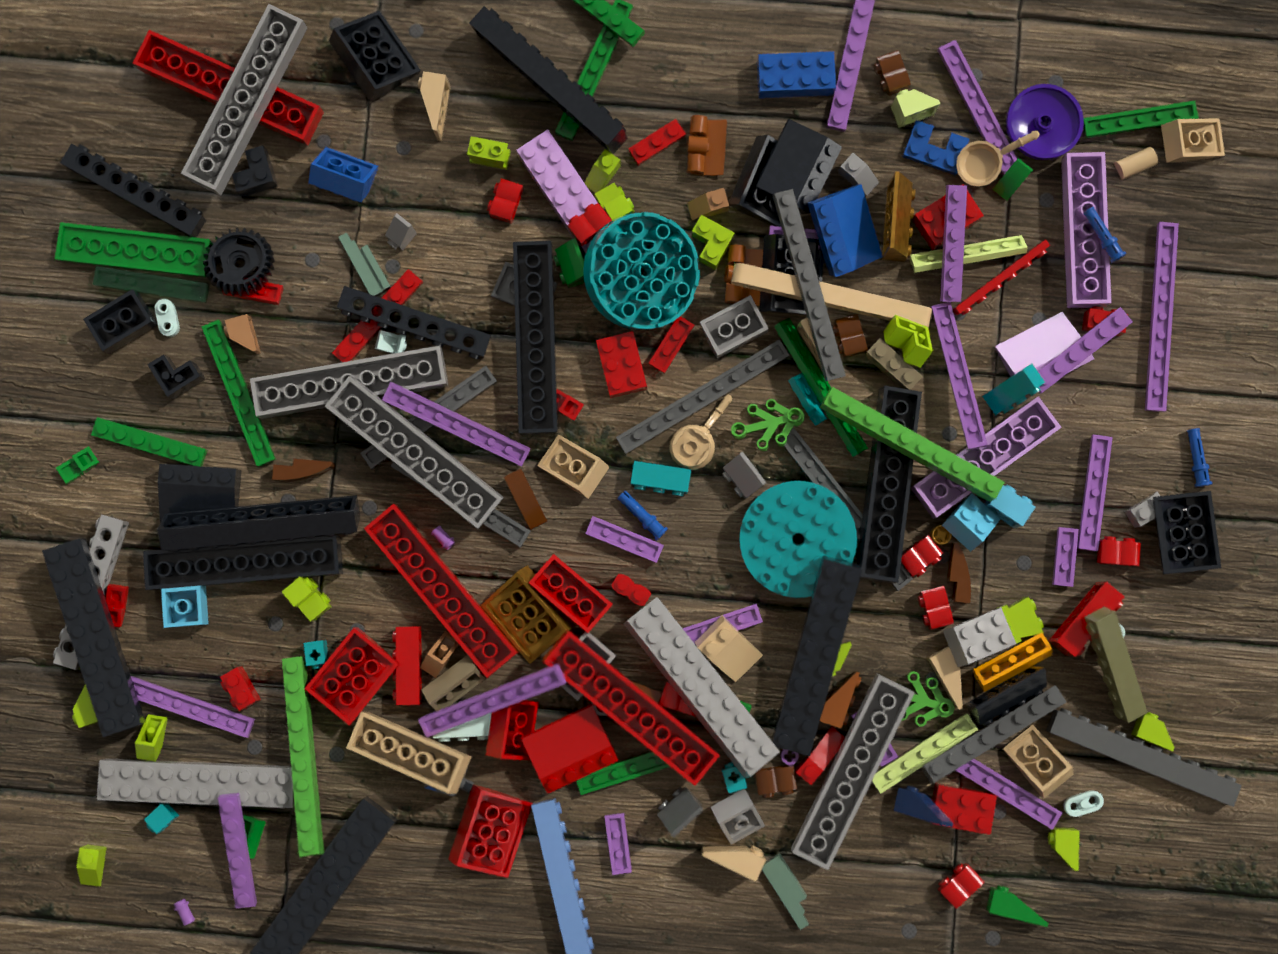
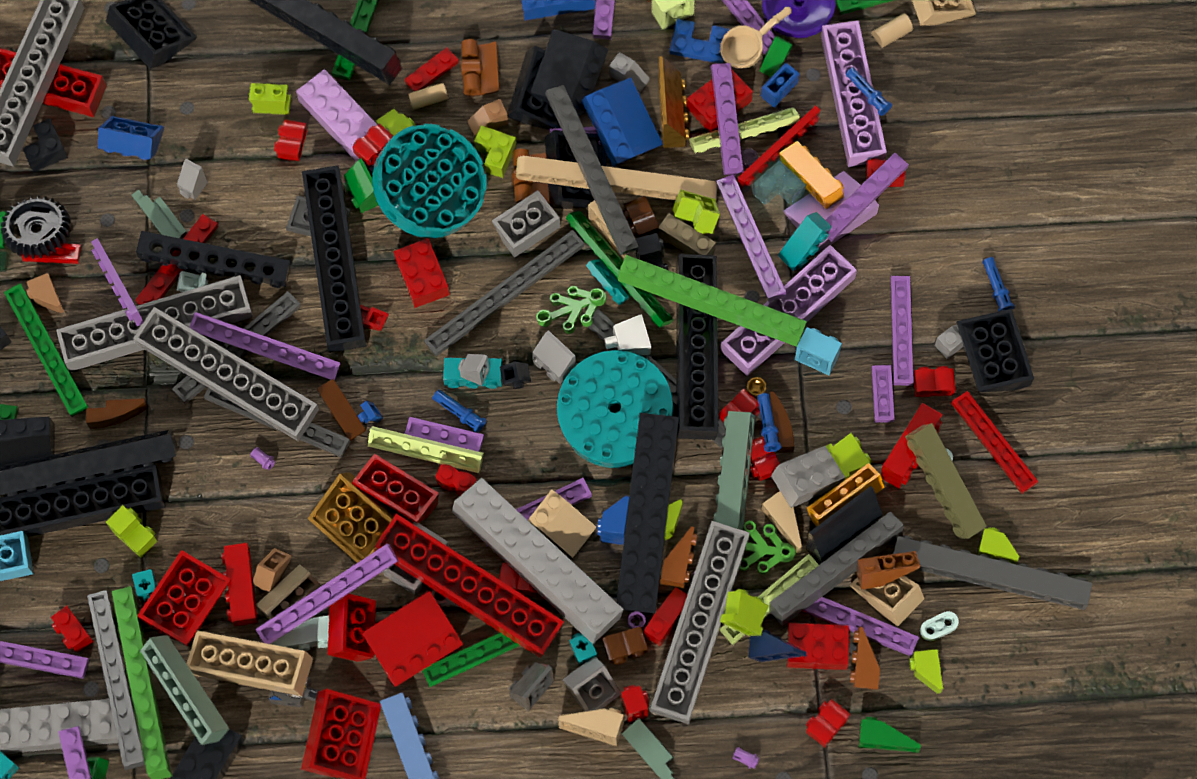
camera: 10 degrees left, 15 degrees down
(278, 752) = (116, 680): none -> plate
(316, 342) = (118, 286): none -> medium lavender plate
(343, 773) = (184, 689): none -> sand green brick
(435, 94) = (213, 53): tan slope -> none
(441, 590) = (266, 506): red brick -> none
(554, 505) = (370, 413): none -> blue tile
(573, 466) = (386, 373): tan slope -> none
(602, 171) = (382, 100): lime slope -> none
(604, 551) = (425, 449): none -> yellowish green plate
(618, 843) = (473, 730): medium lavender plate -> none
(650, 172) = (428, 96): none -> tan brick
(663, 480) = (474, 368): none -> light grey slope
(671, 344) = (468, 249): red plate -> none
(693, 444) = (503, 337): tan piece -> none
(703, 488) = (515, 374): none -> black brick
(777, 842) = (635, 703): none -> red brick
(782, 657) = (613, 522): none -> blue slope
(822, 466) = (630, 337): none -> white torso
(855, 382) = (651, 250): none -> black brick
(876, 907) = (746, 758): none -> medium lavender pin
(897, 771) = (744, 612): none -> lime hips
(908, 621) = (735, 469): none -> sand green brick
(948, 583) = (769, 429): none -> blue pin
(969, 284) = (749, 156): none -> tile
(971, 522) = (783, 370): medium azure brick -> none
(996, 315) = (778, 181): none -> clear light blue brick
(1006, 840) = (866, 667): none -> dark orange slope
(1012, 210) = (780, 85): none -> blue brick
(1030, 315) = (810, 171): none -> light orange brick
(1043, 744) = (884, 569): none -> dark orange slope
(1161, 317) = (939, 163): medium lavender plate -> none
(1168, 623) = (994, 442): none -> red plate

